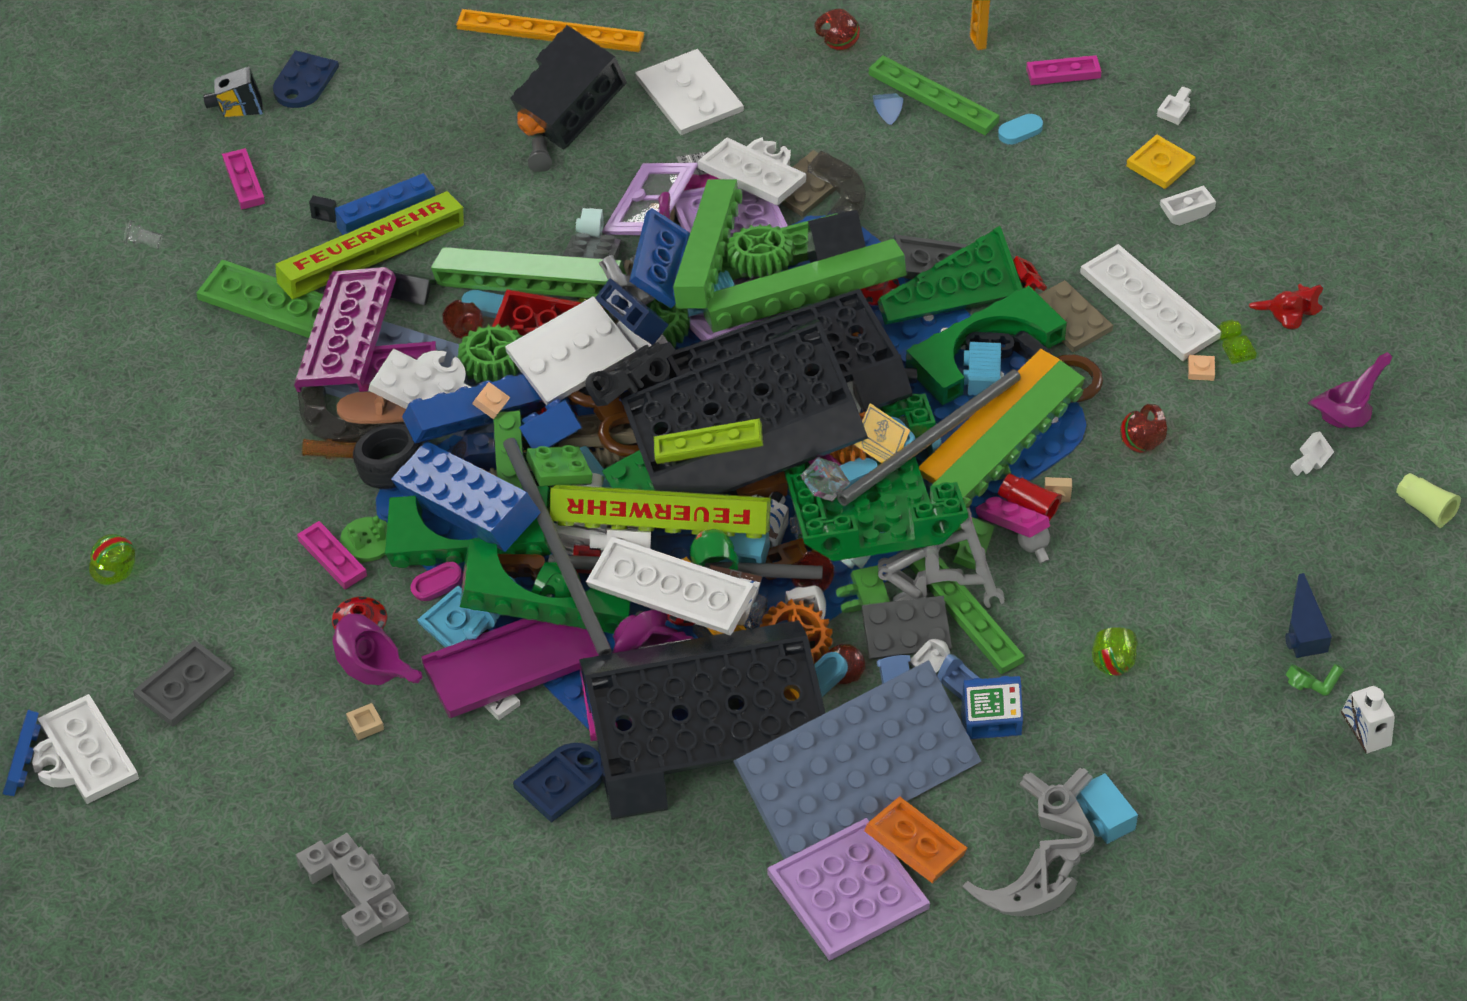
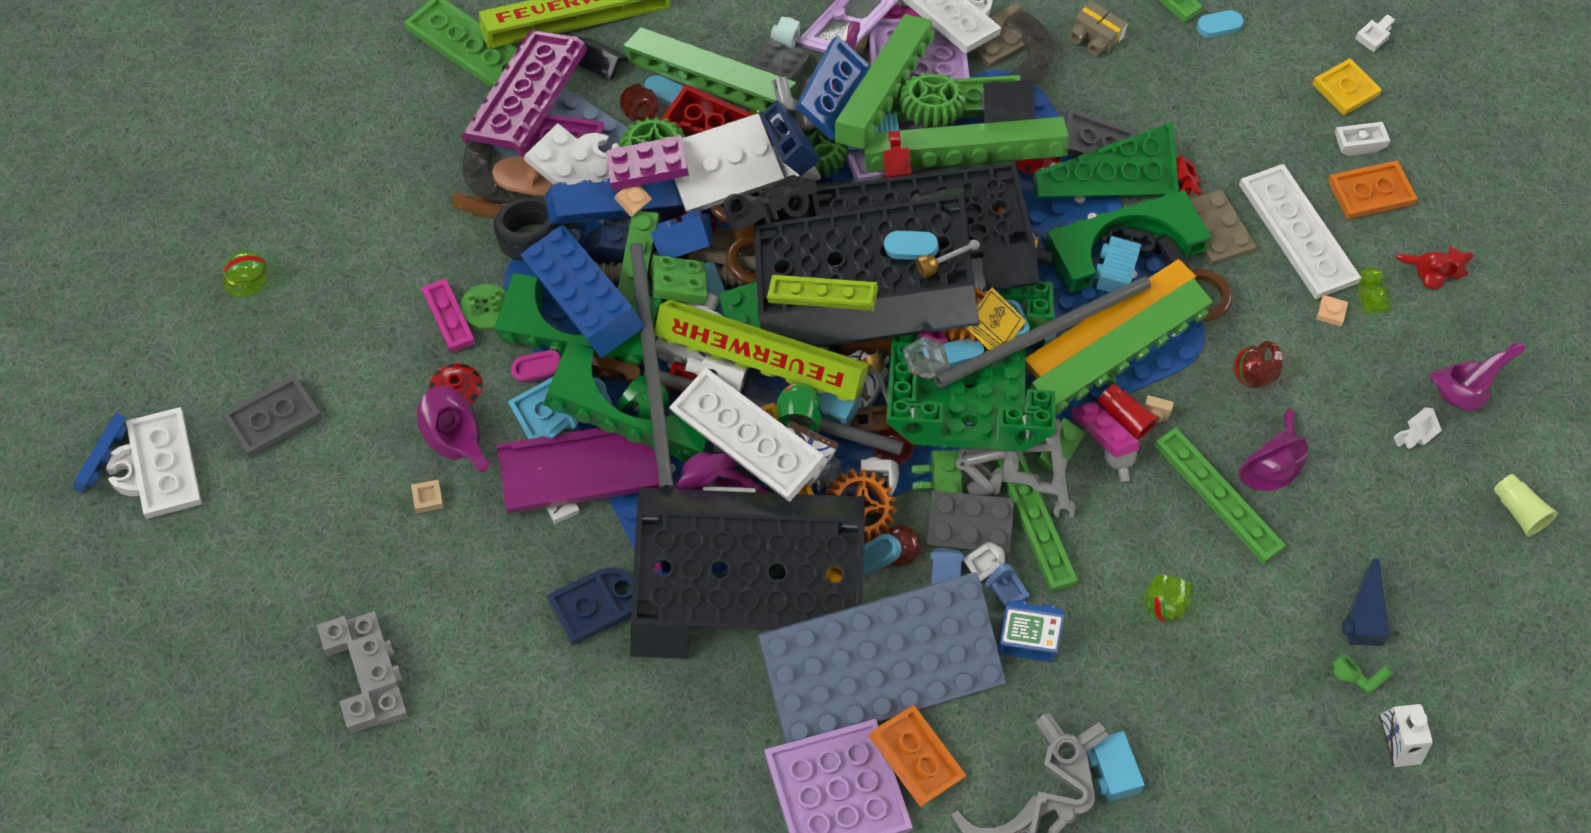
camera: 10 degrees right, 10 degrees up
(497, 363) = (646, 163): none -> plate
(741, 311) = (897, 158): none -> red plate
(776, 507) = (876, 365): none -> pearl gold hinge
(783, 378) = (910, 244): none -> medium azure tile
(805, 391) = (928, 264): none -> hinge
(902, 157) = (1097, 28): none -> dark tan hips
(1138, 553) = (1220, 495): none -> bright green plate
(1184, 510) = (1277, 460): none -> magenta hat
(1210, 250) = (1372, 189): none -> orange plate

